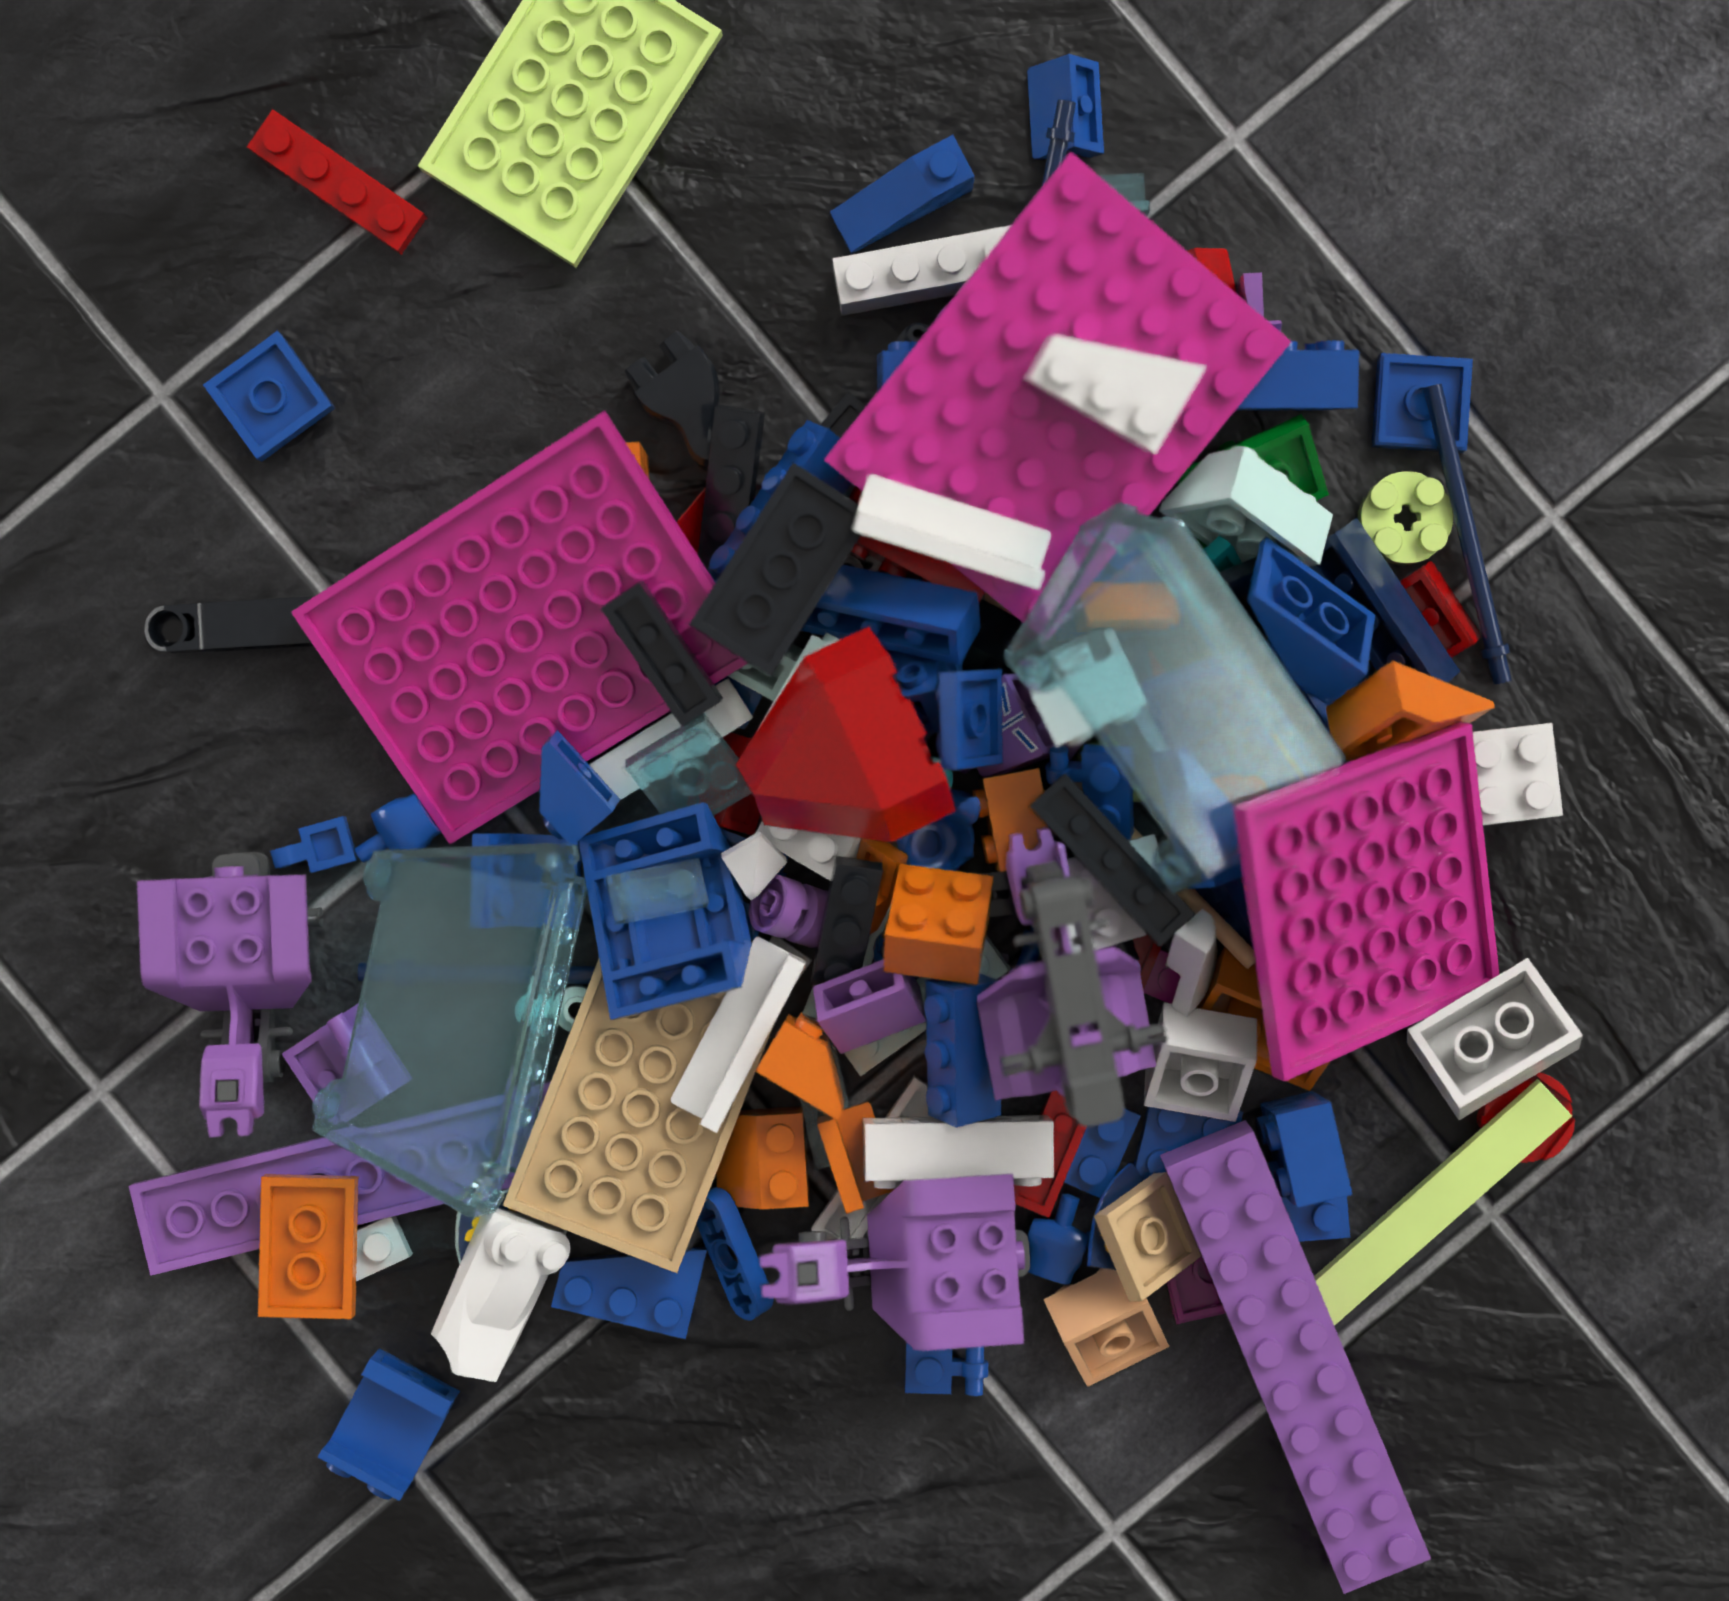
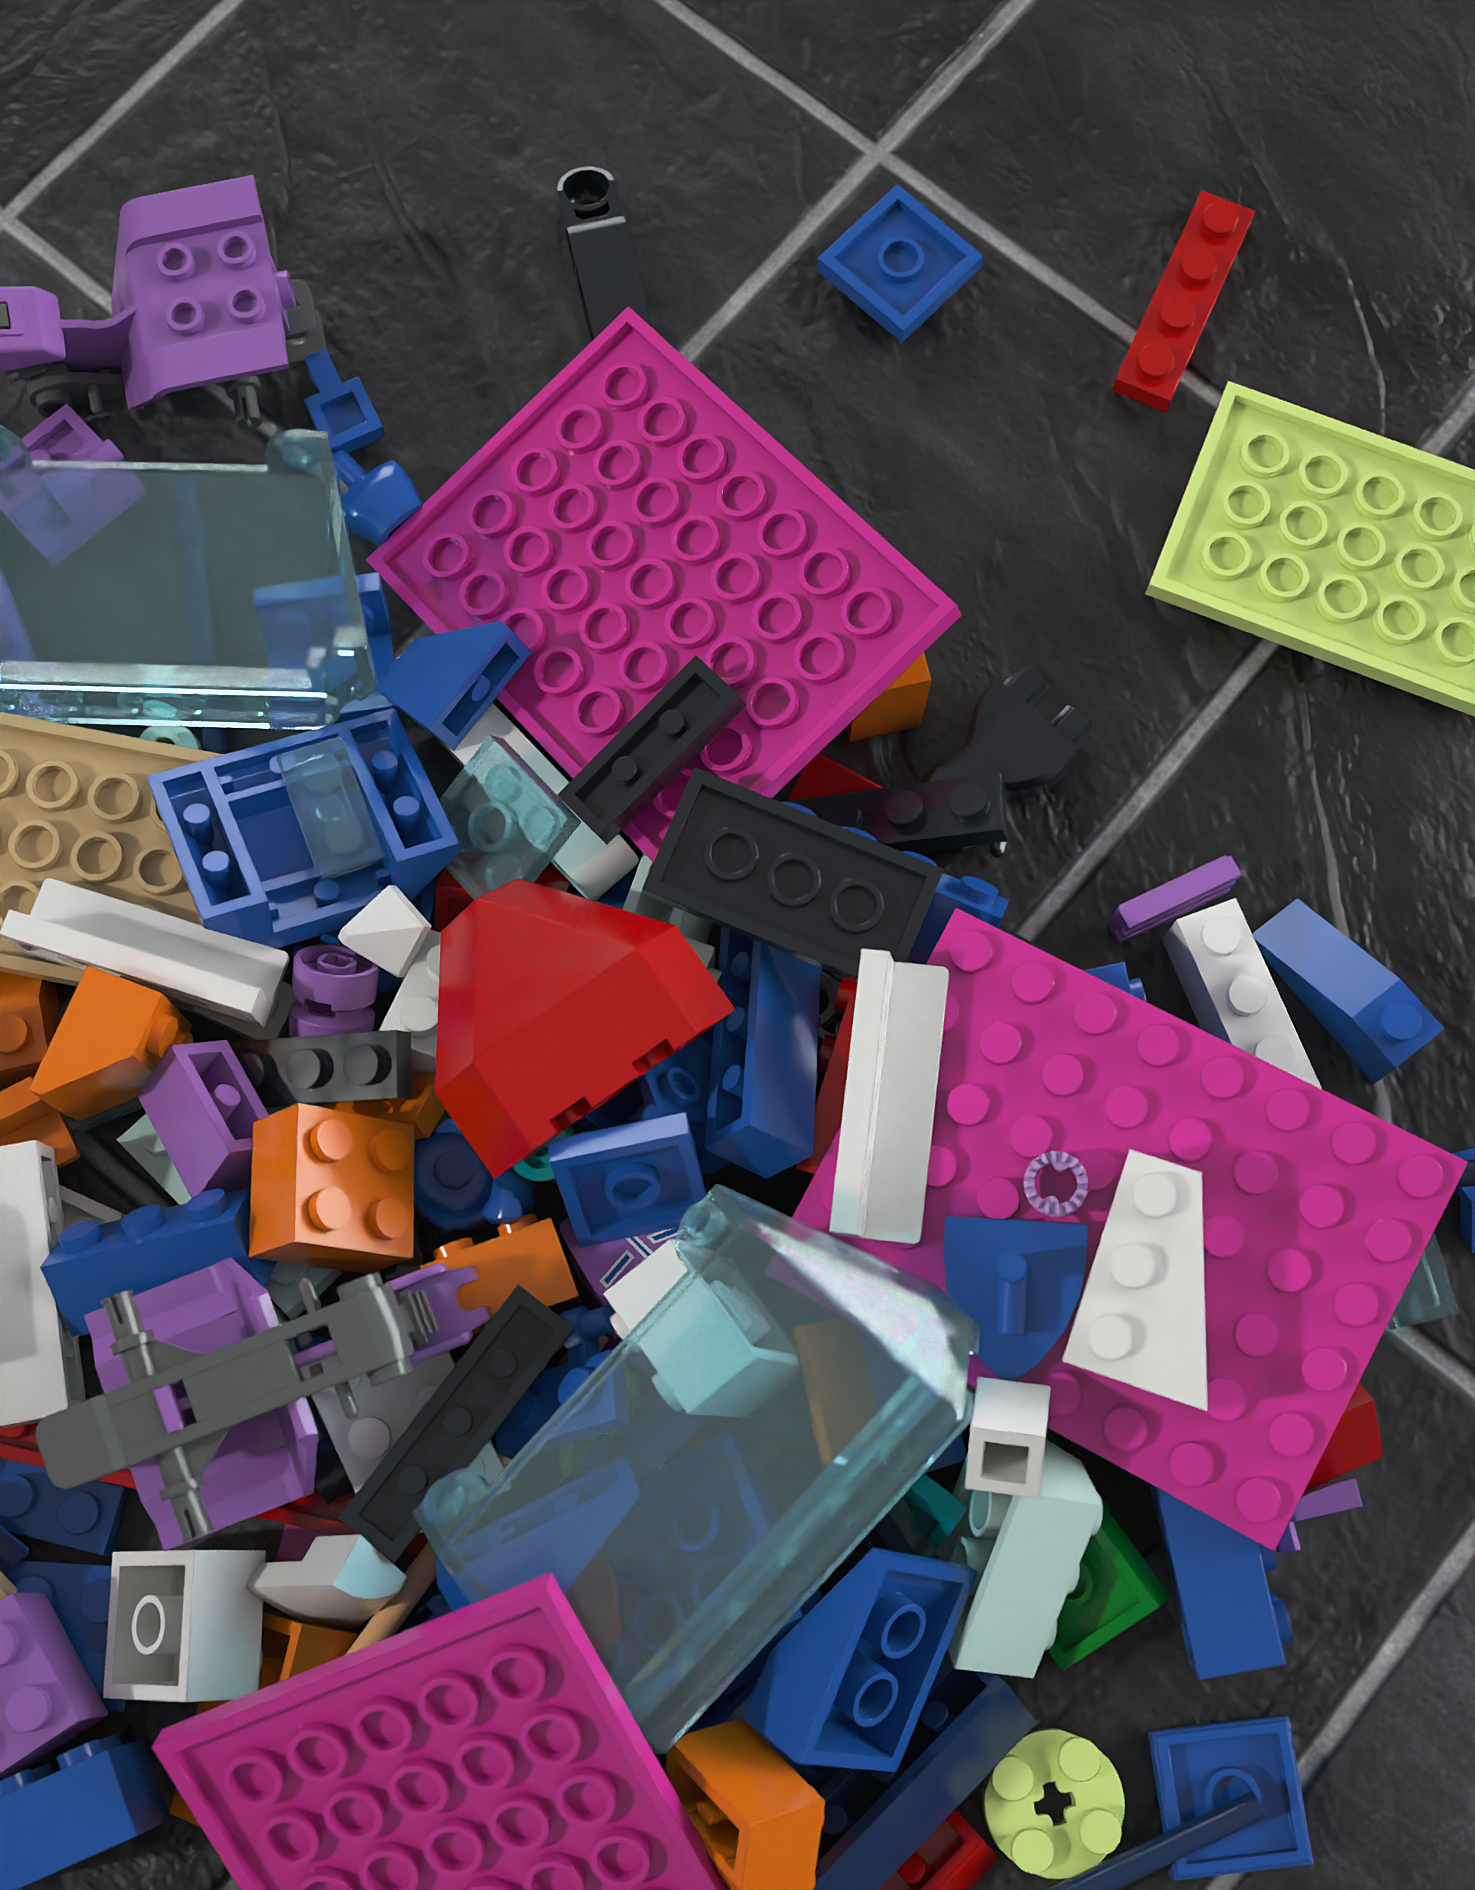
camera: 85 degrees right, 15 degrees down
(818, 301) = (1173, 899): none -> medium lavender tile
(1046, 438) = (1060, 1162): none -> lavender bush
(1091, 473) = (1015, 1284): none -> blue shield
(1192, 498) = (1007, 1437): none -> white brick

